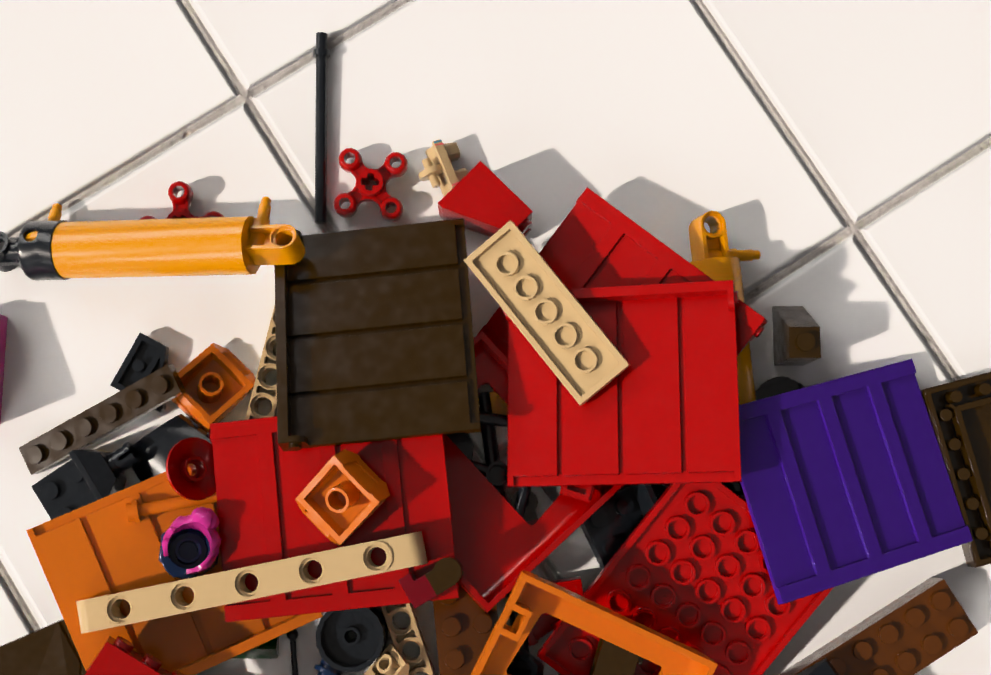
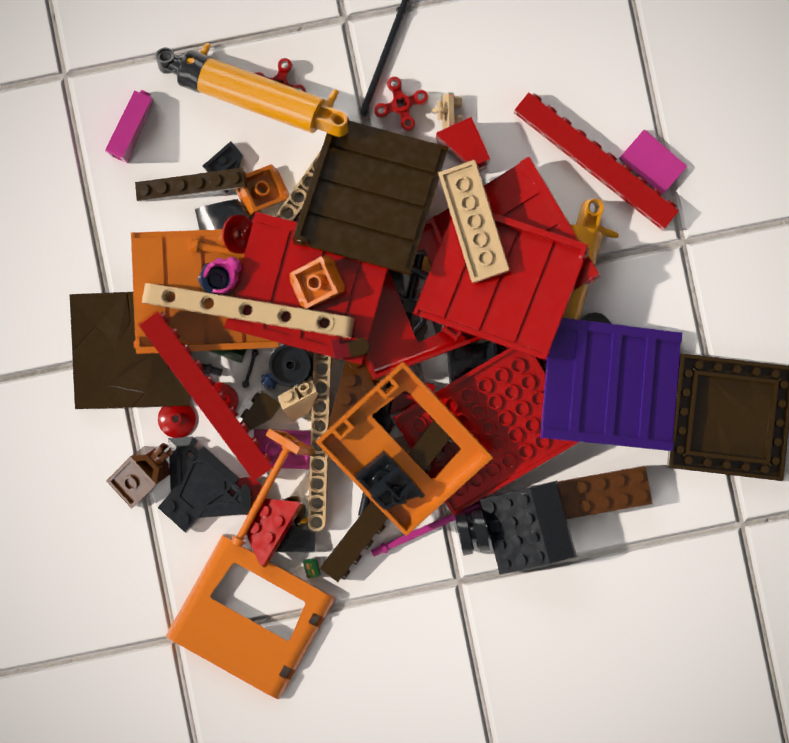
camera: 25 degrees right, 5 degrees up
(85, 479) = (167, 216): black plate -> none
(685, 160) = (595, 161): none -> red brick
(764, 132) = (652, 162): none -> dark pink tile
(794, 336) = (617, 292): dark brown slope -> none

